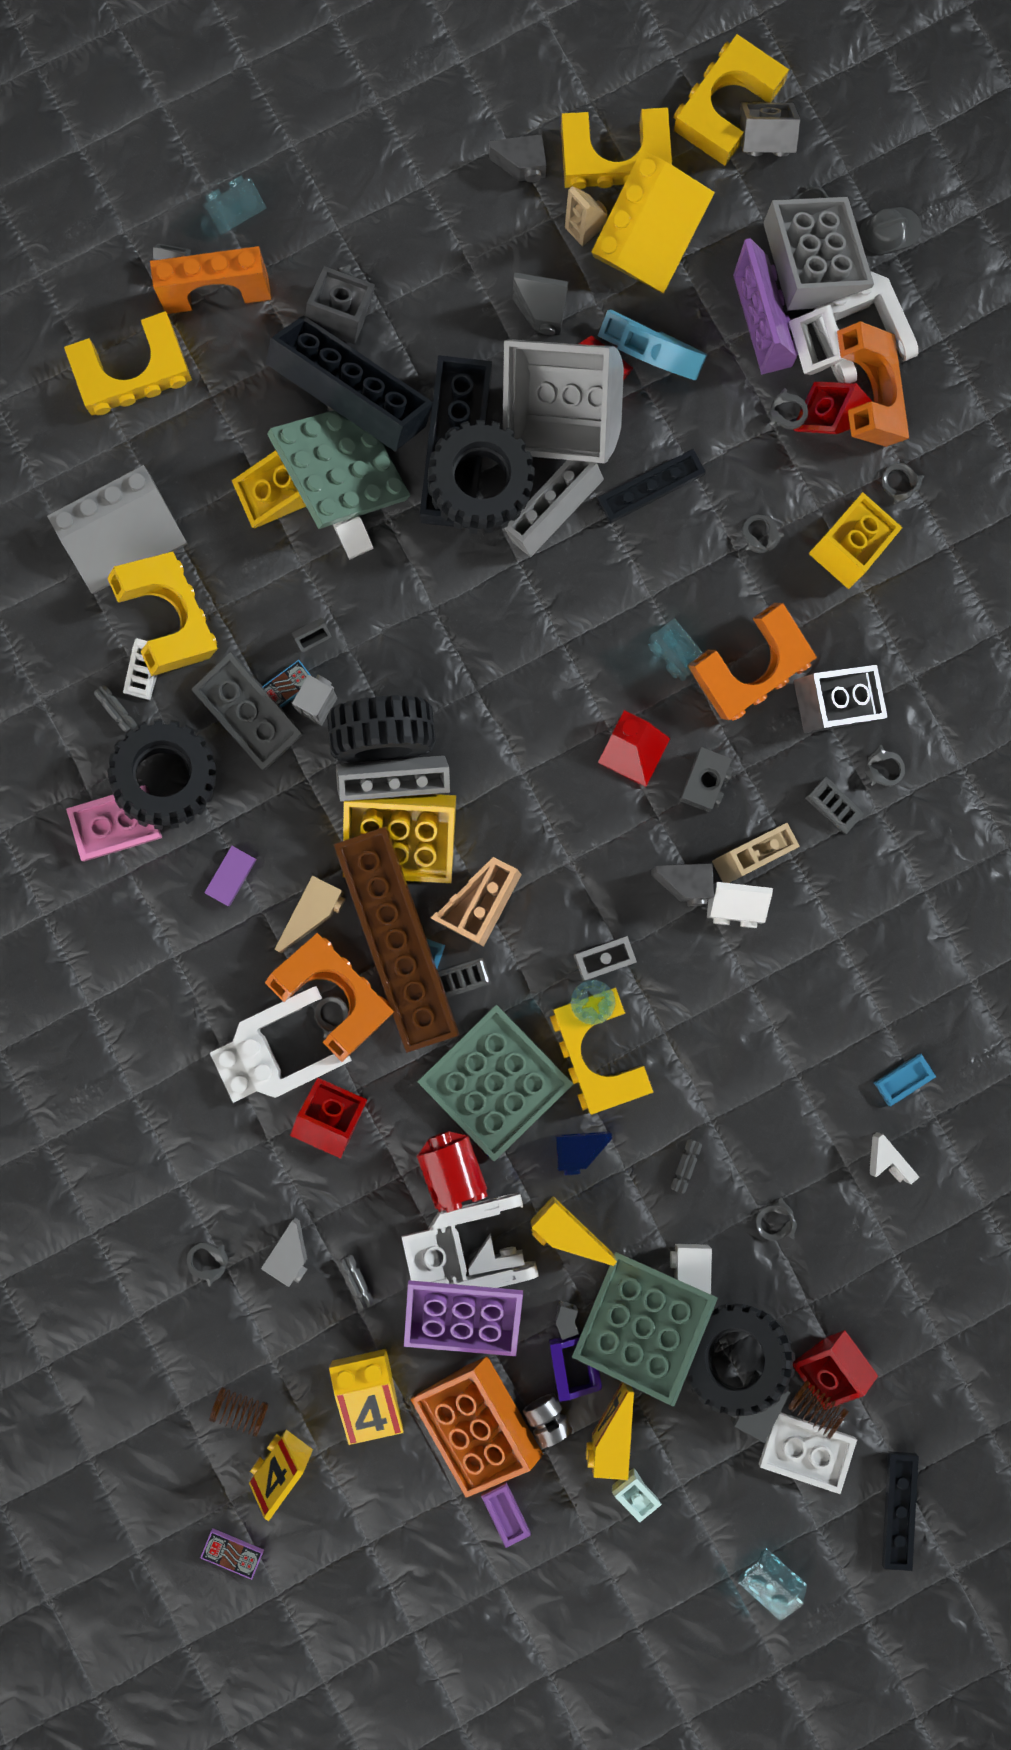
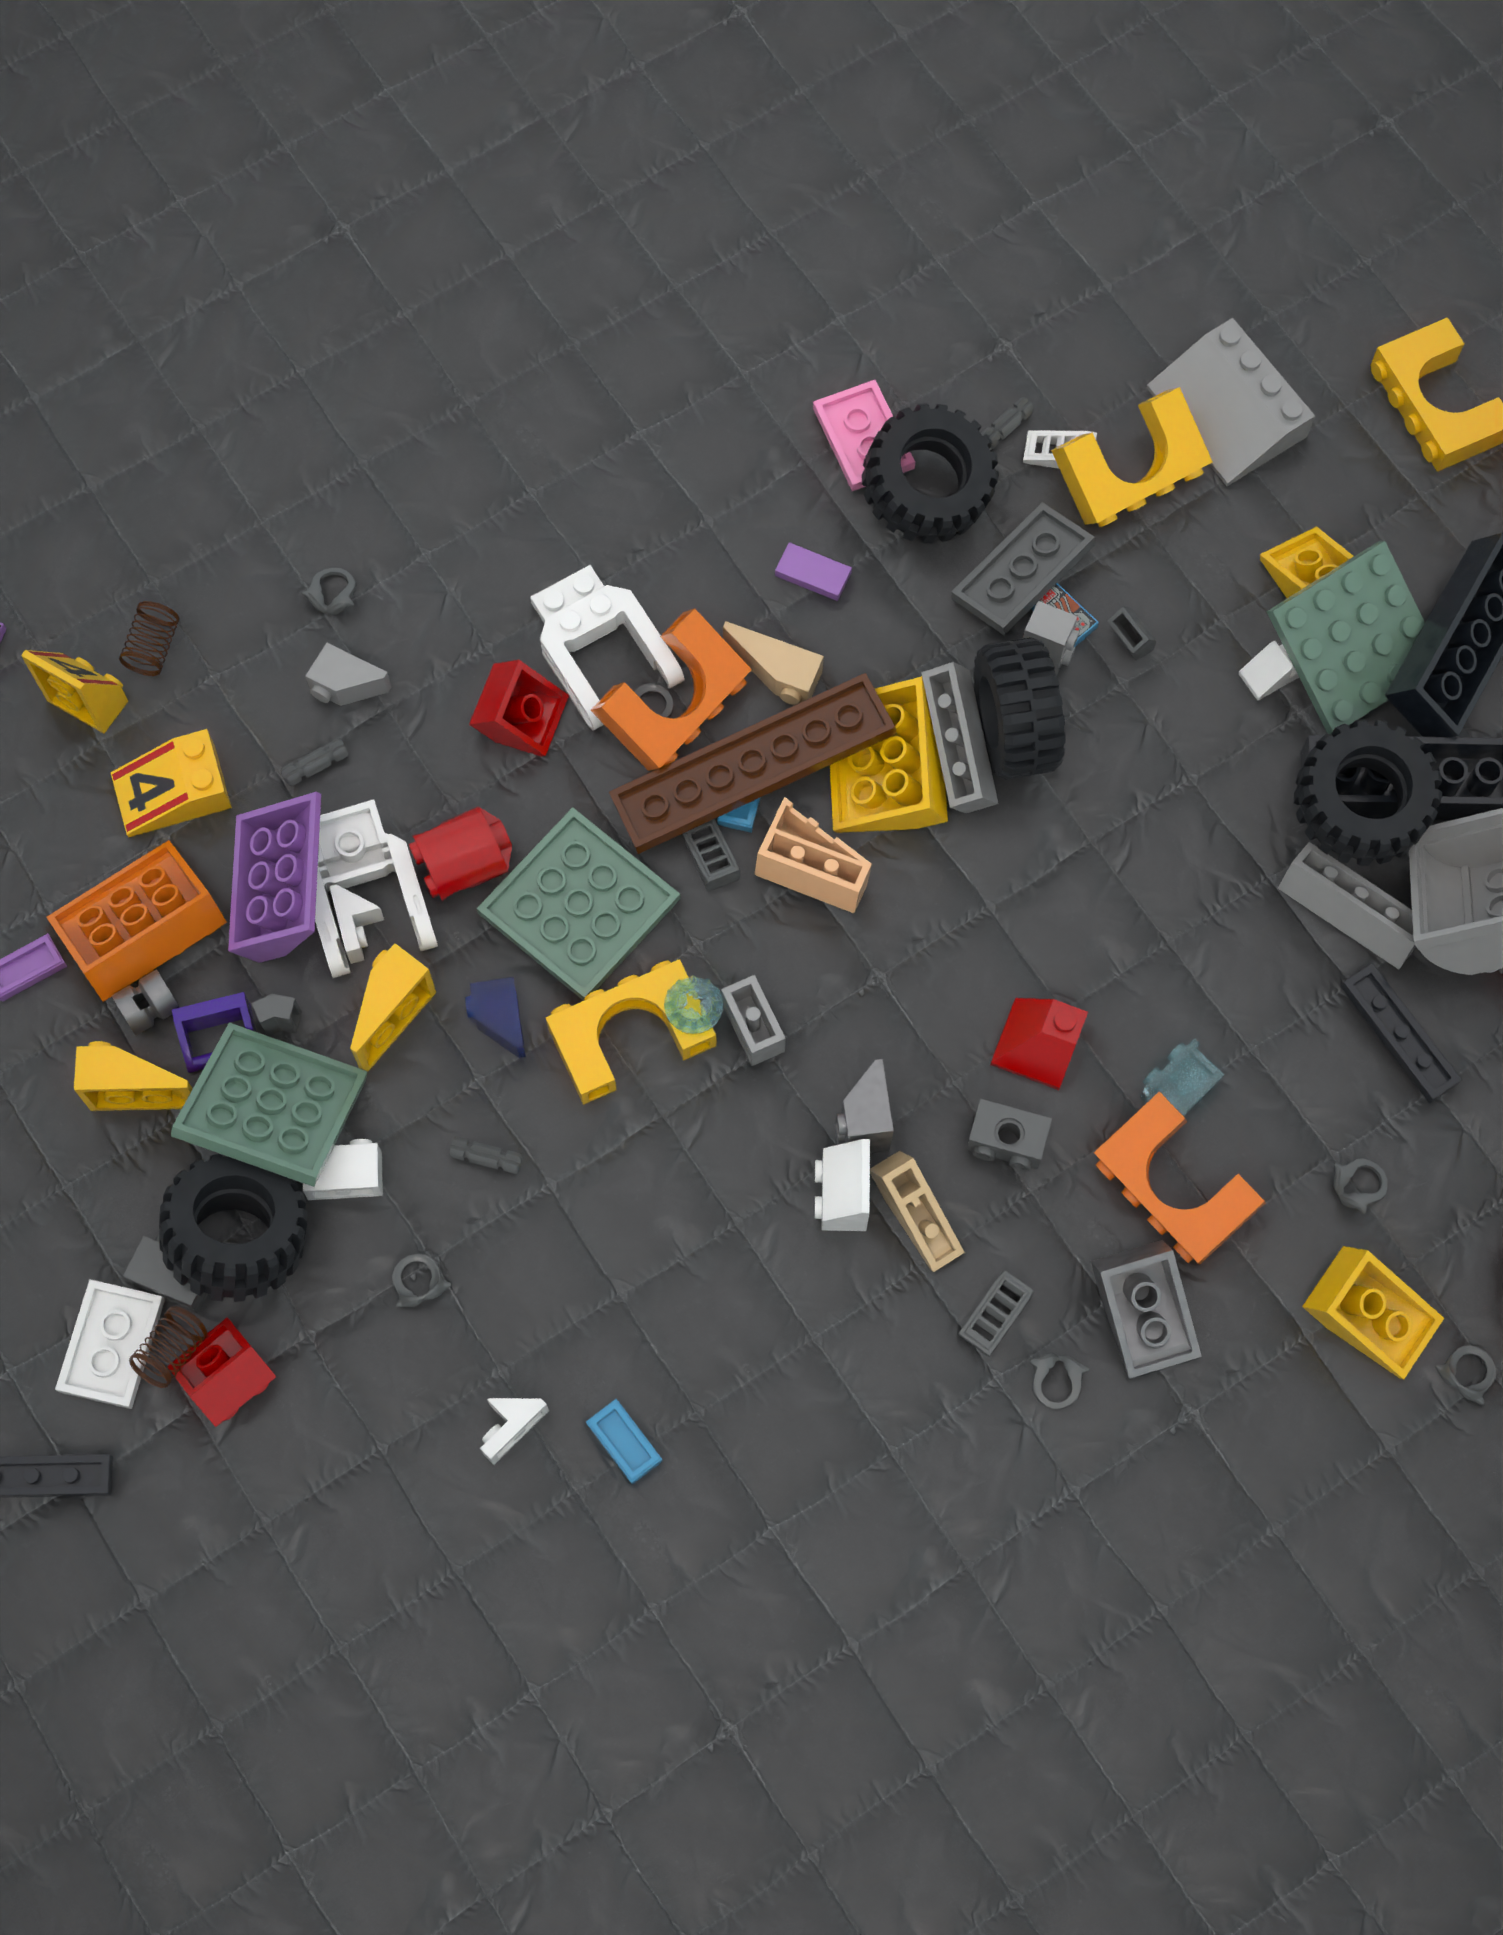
camera: 90 degrees right, 15 degrees down
(635, 1496) = (50, 1119): light aqua slope -> none

